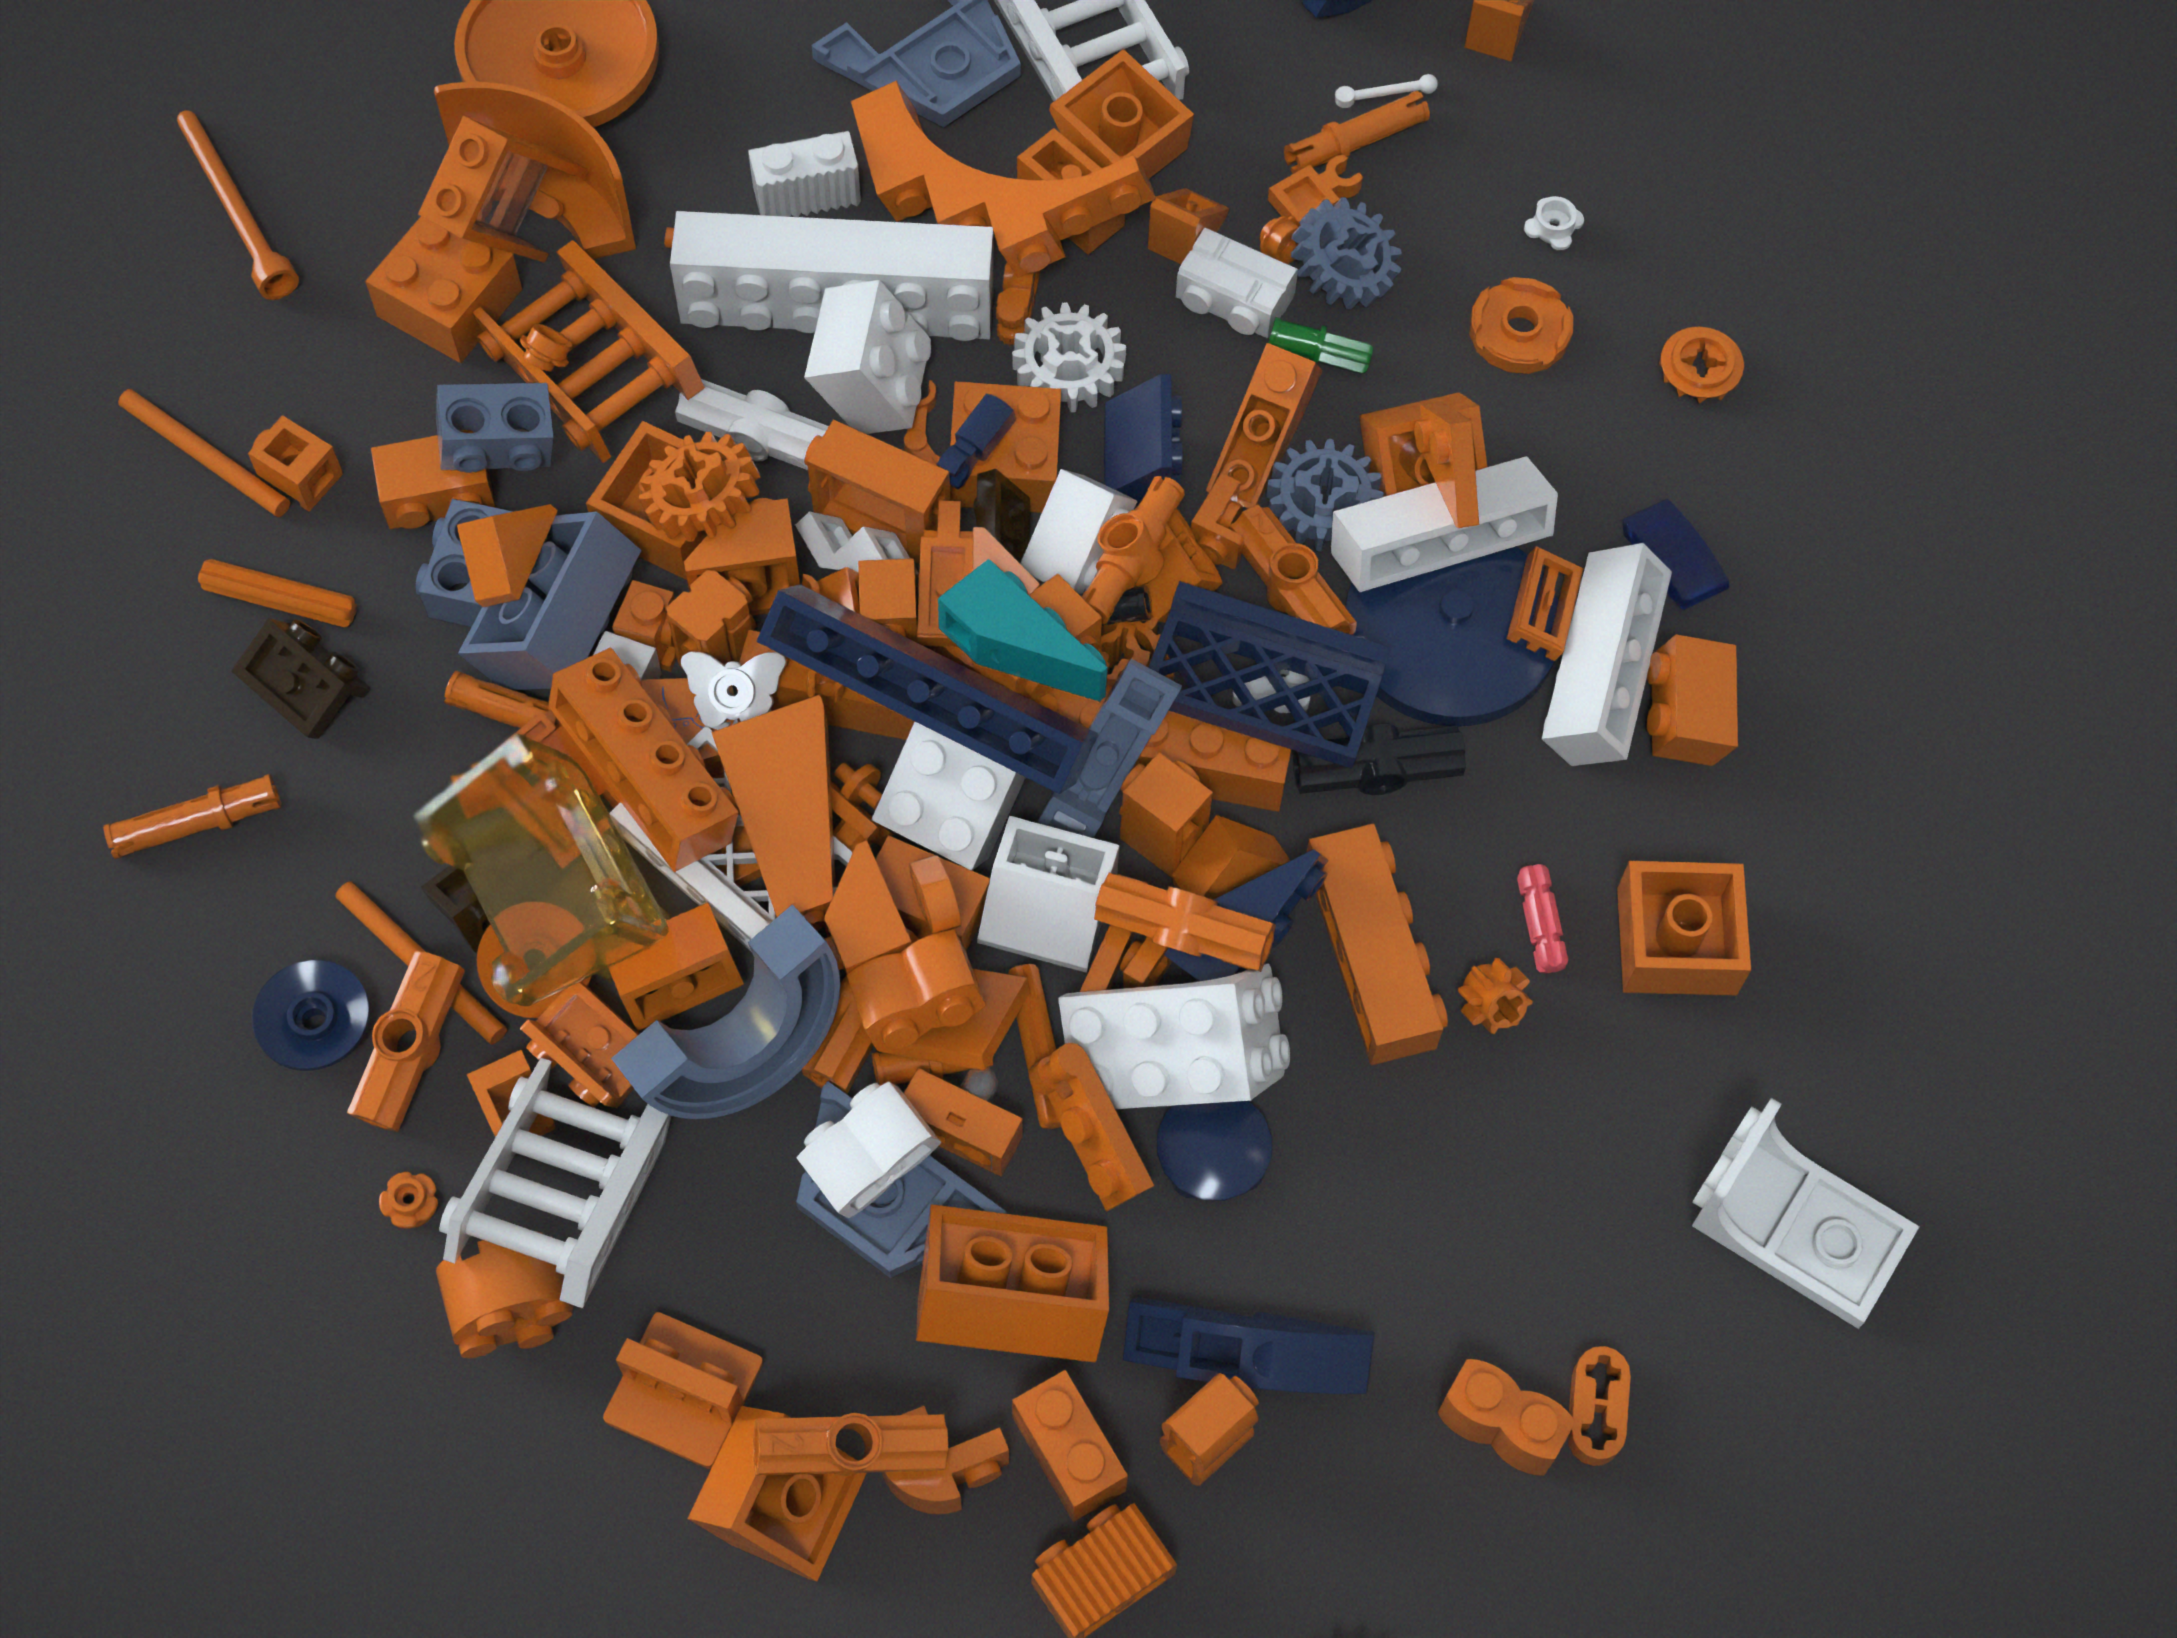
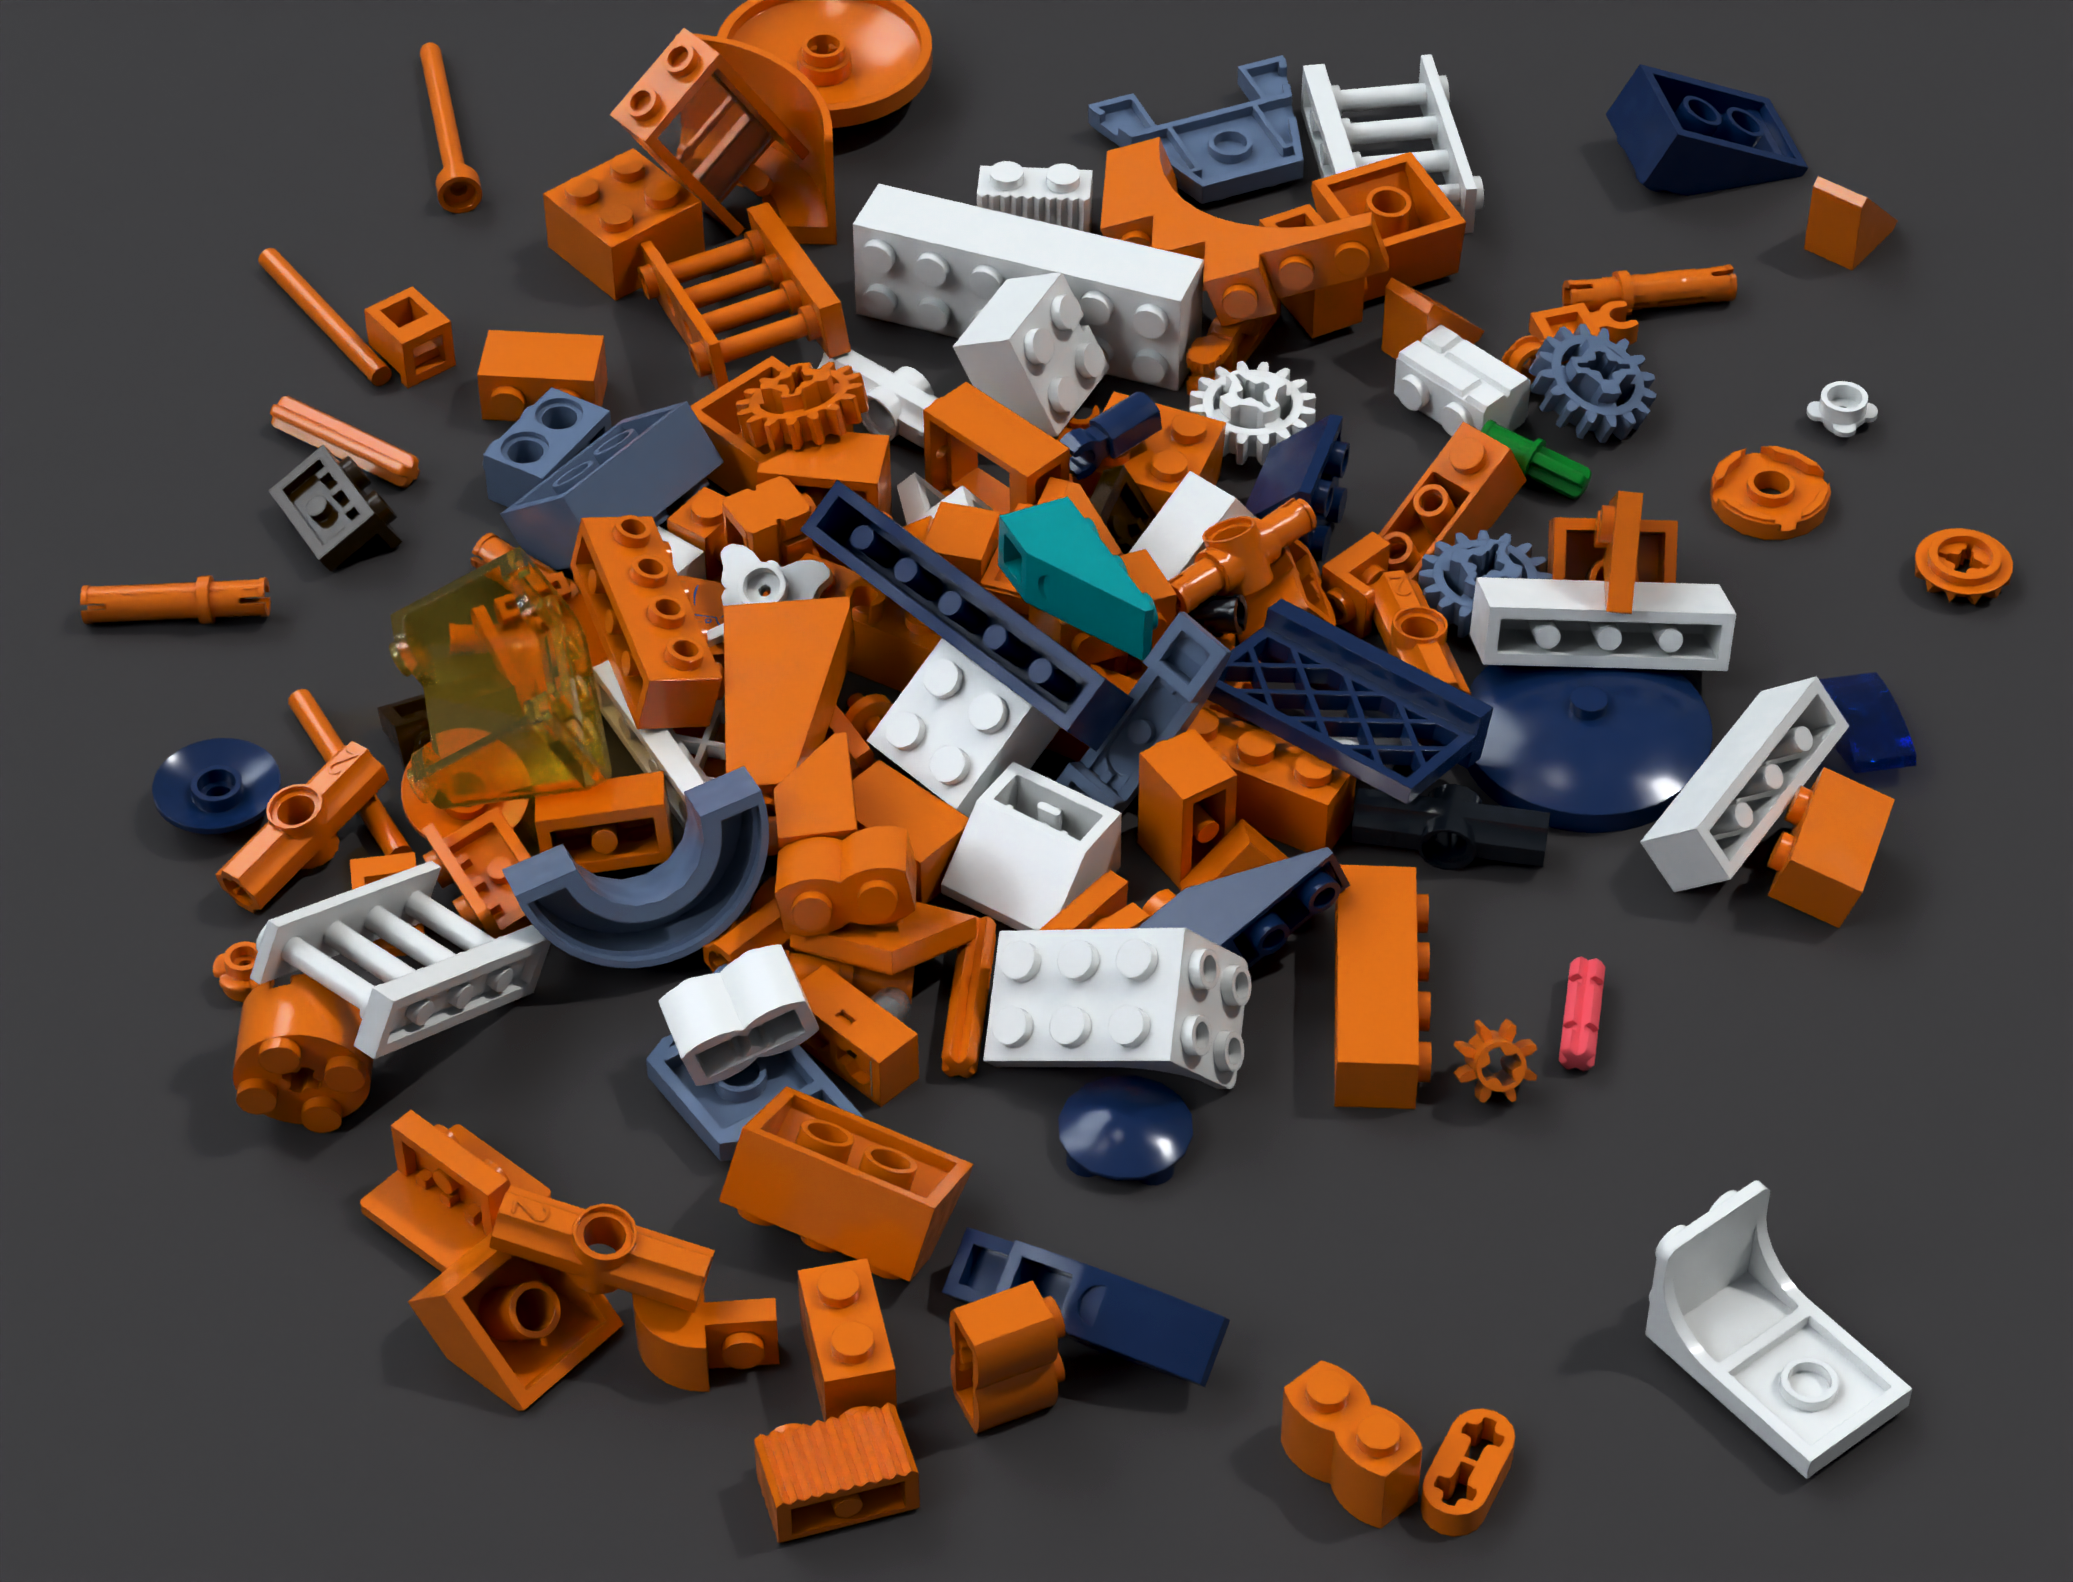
camera: 20 degrees right, 20 degrees down
(493, 416) = (617, 328): sand blue brick -> none
(504, 551) = (580, 421): orange slope -> none
(545, 347) = (698, 275): orange plate -> none
(935, 894) = (900, 798): orange beam -> none
(1091, 1124) = (992, 1062): orange plate -> none
(1184, 921) = (1162, 887): orange piece -> none
(1346, 96) = (1653, 262): white hinge -> none
(1534, 633) = (1674, 747): orange tile -> none
(1683, 928) = (1735, 1044): orange brick -> none

